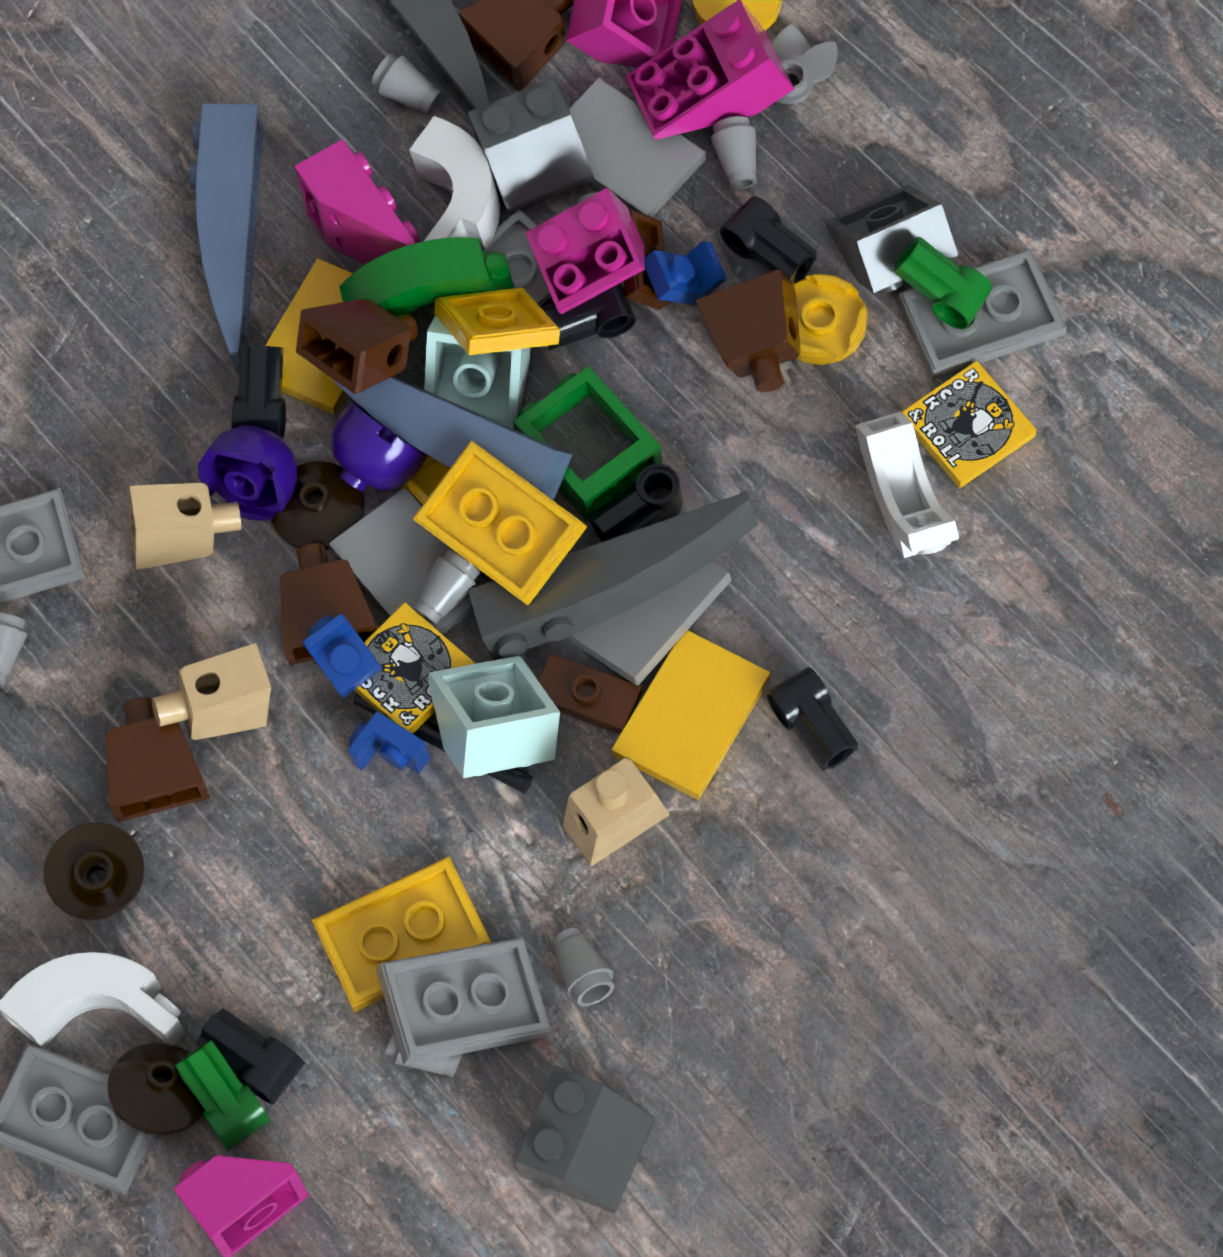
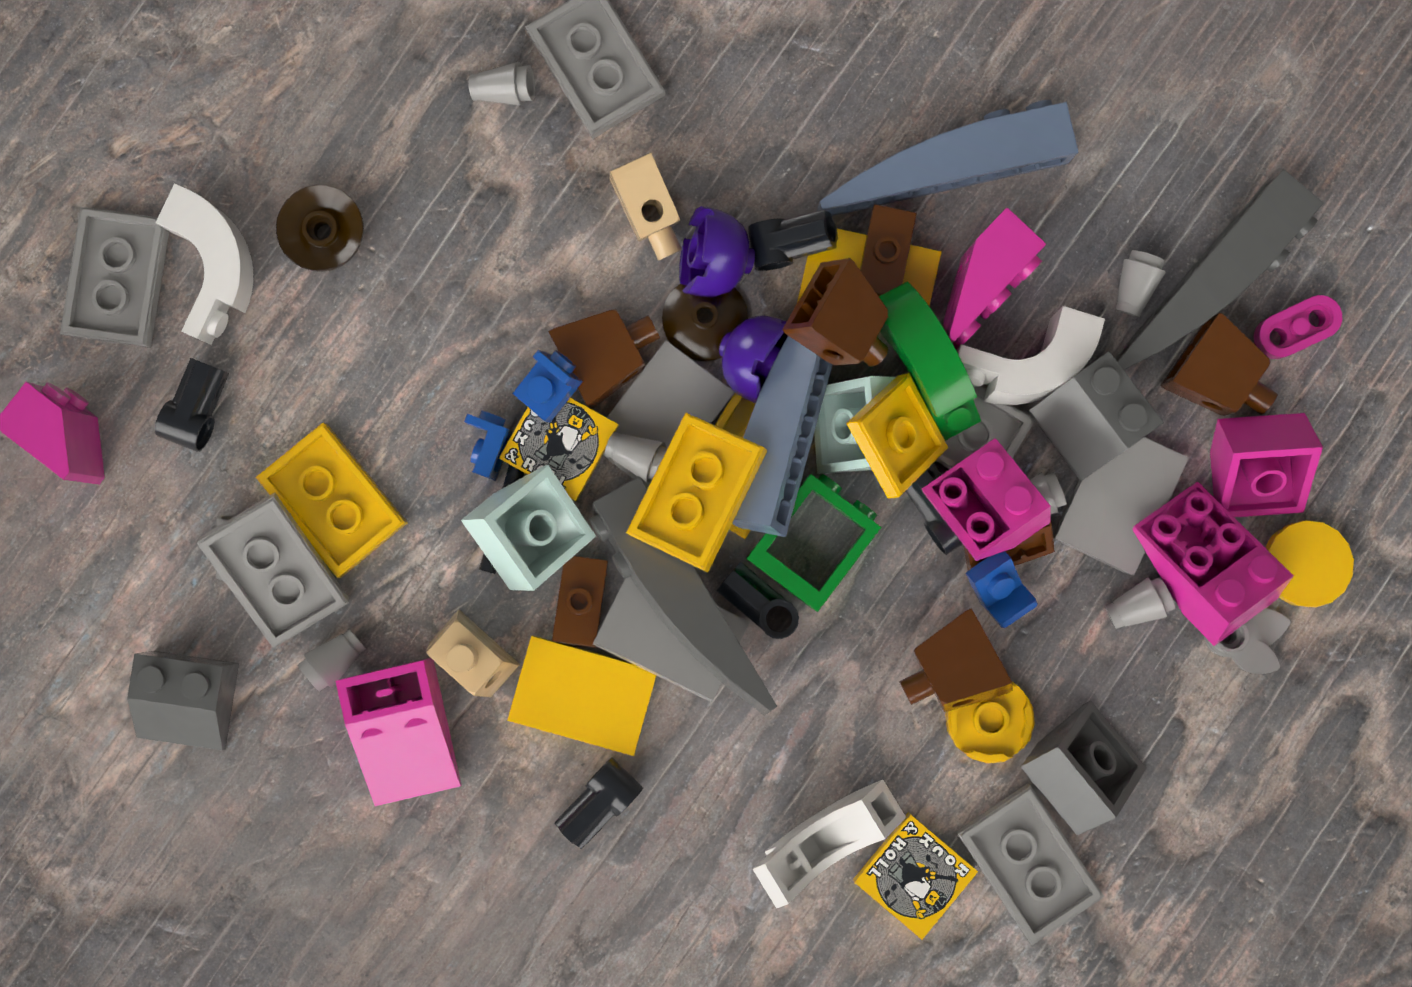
camera: 70 degrees right, 20 degrees up
(146, 1102) = (143, 314): dark brown dish -> none
(149, 765) = (427, 246): reddish brown torso -> none
(218, 695) = (497, 302): tan torso -> none
(227, 1103) = (147, 393): green piece -> none
(284, 296) = (887, 247): none -> reddish brown plate
(679, 904) = (399, 731): none -> slope
(759, 233) = (1059, 645): black piece -> none
(953, 289) = (1038, 838): green piece -> none

